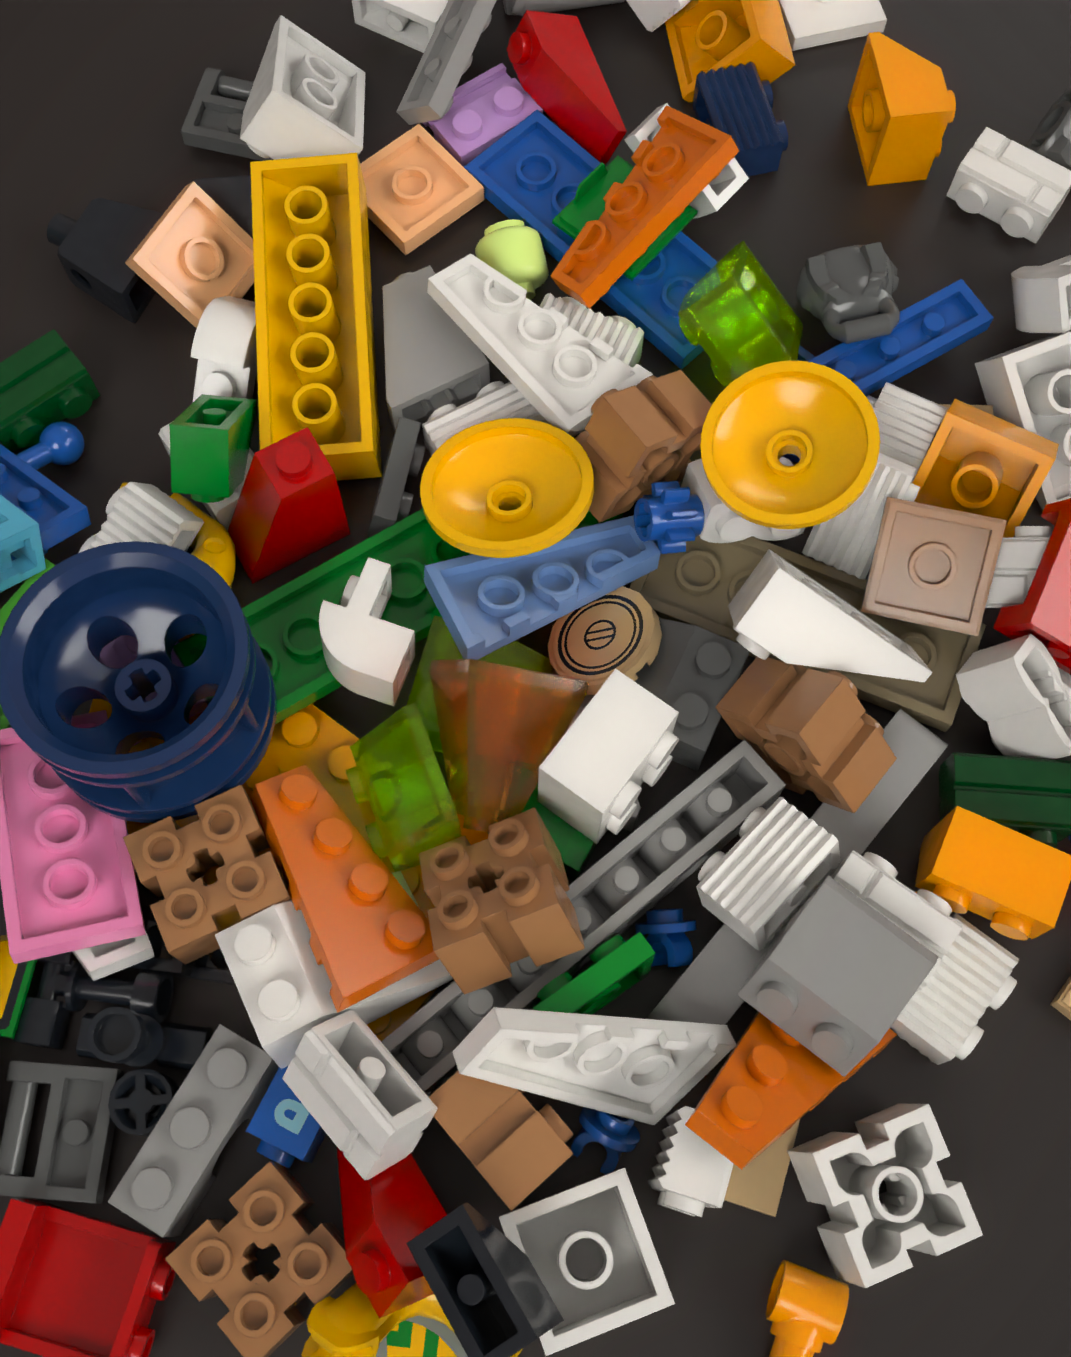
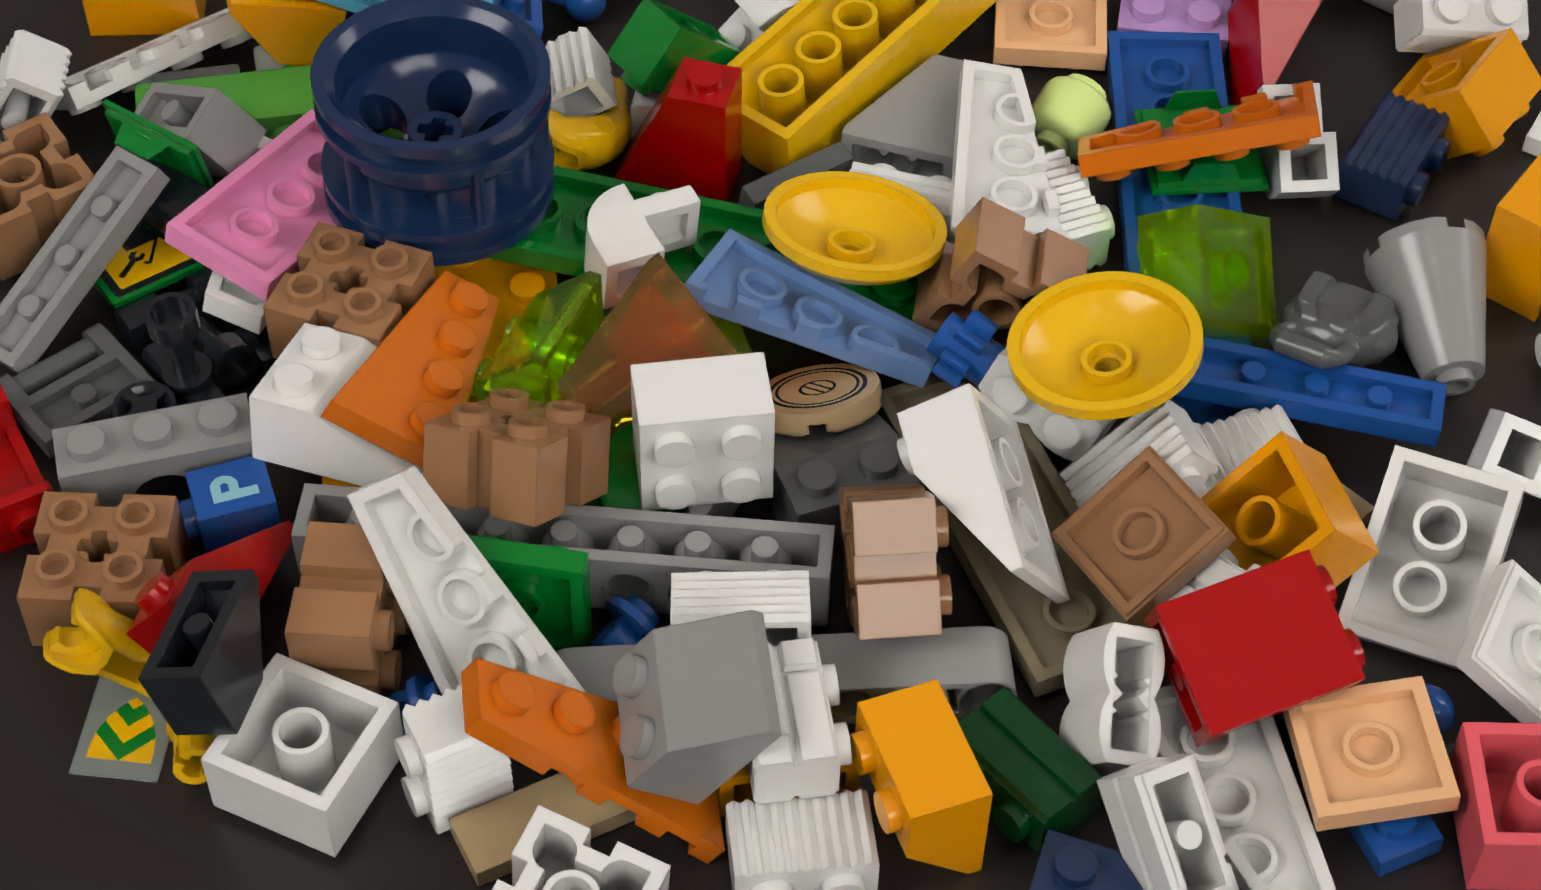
camera: 45 degrees right, 20 degrees down
(359, 1093) = (276, 483): white brick -> none
(888, 207) = (1439, 296): none -> light grey cone

